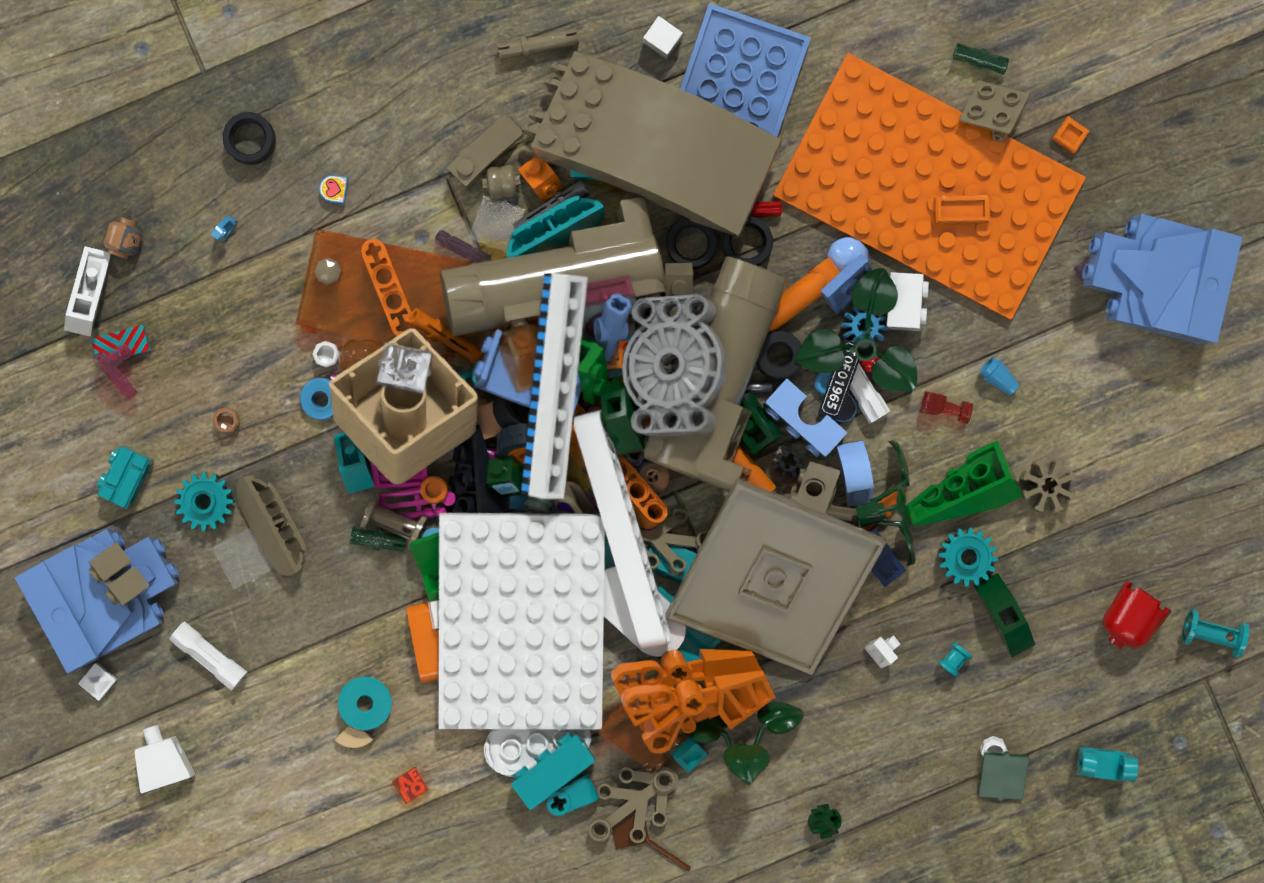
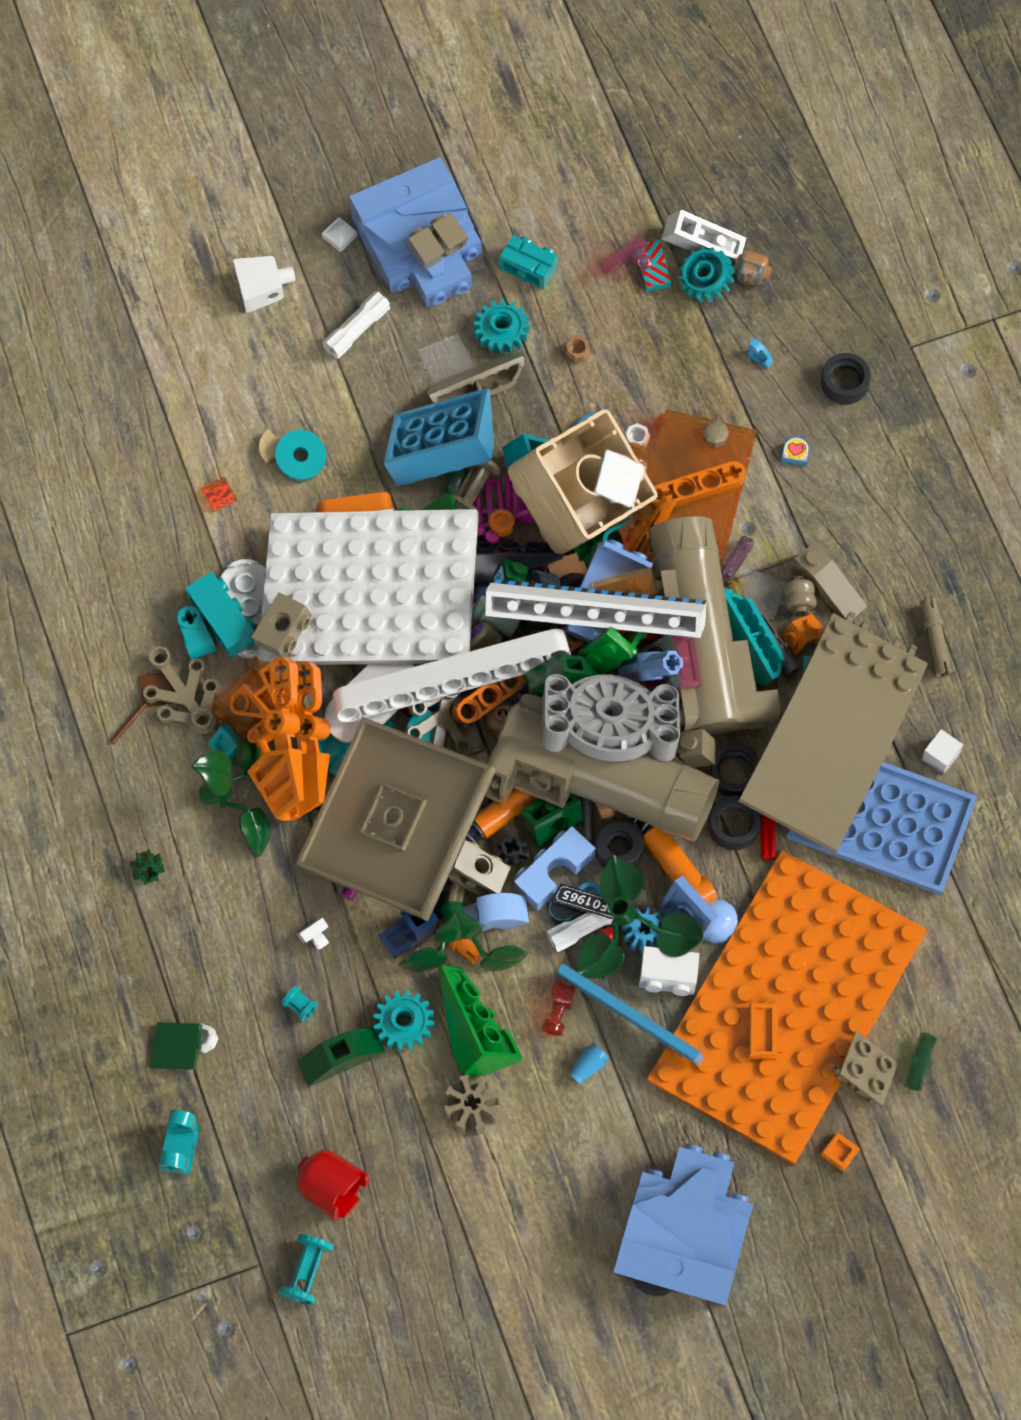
camera: 90 degrees right, 20 degrees down
(140, 274) = (714, 283): none -> teal gear
(344, 557) = (440, 438): none -> dark azure slope
(580, 720) = (282, 611): none -> dark tan brick
(954, 336) = (630, 1015): none -> dark azure tile

